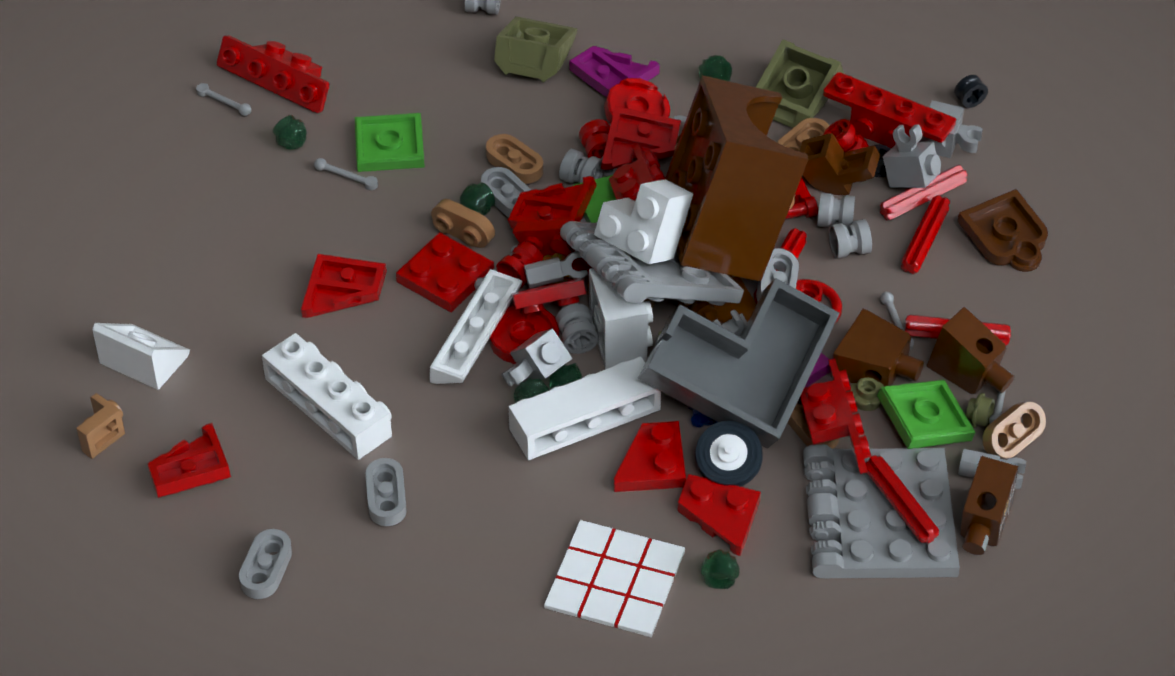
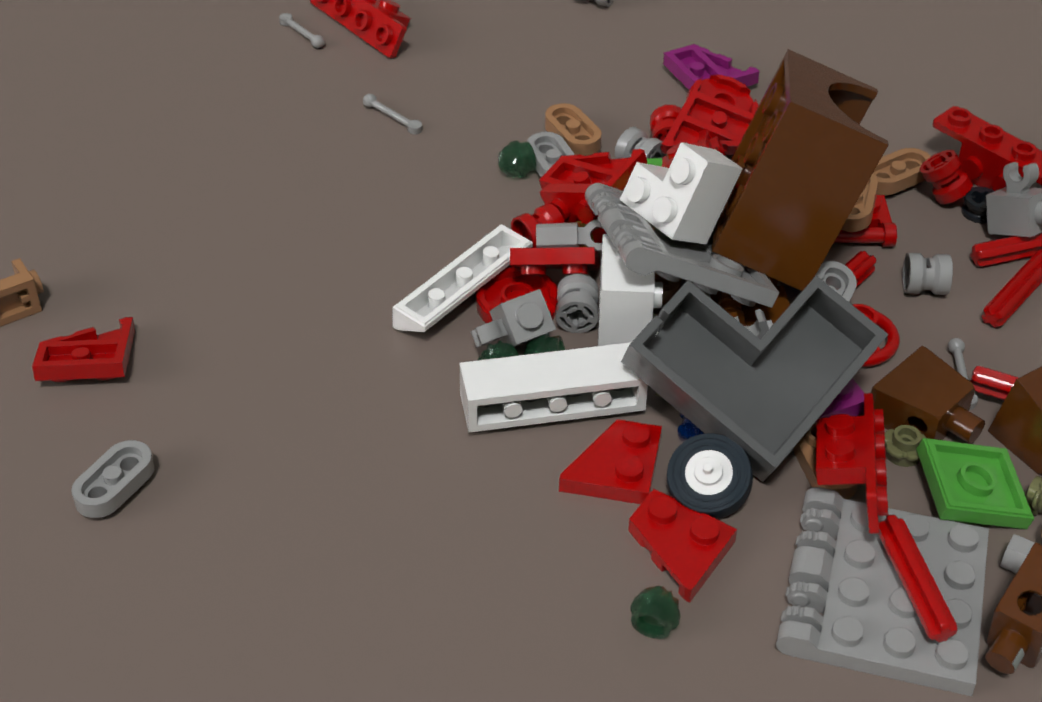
camera: 15 degrees right, 5 degrees down
(138, 352) = (92, 232): white slope -> none
(290, 132) = (350, 65): clear green plate -> none
(327, 395) = (271, 316): white brick -> none
(342, 284) = (337, 210): red wing -> none
(386, 494) = (287, 430): light grey plate -> none
(389, 142) = (449, 94): bright green tile -> none
(444, 272) = (453, 220): red plate -> none
(462, 223) = (492, 177): medium nougat plate -> none
(533, 47) = (629, 35): olive slope -> none
(615, 578) = (522, 594): white piece -> none
(800, 80) = (906, 110): olive slope -> none
(835, 170) = (921, 198): reddish brown brick -> none
(835, 211) = (917, 240): light grey wheel -> none

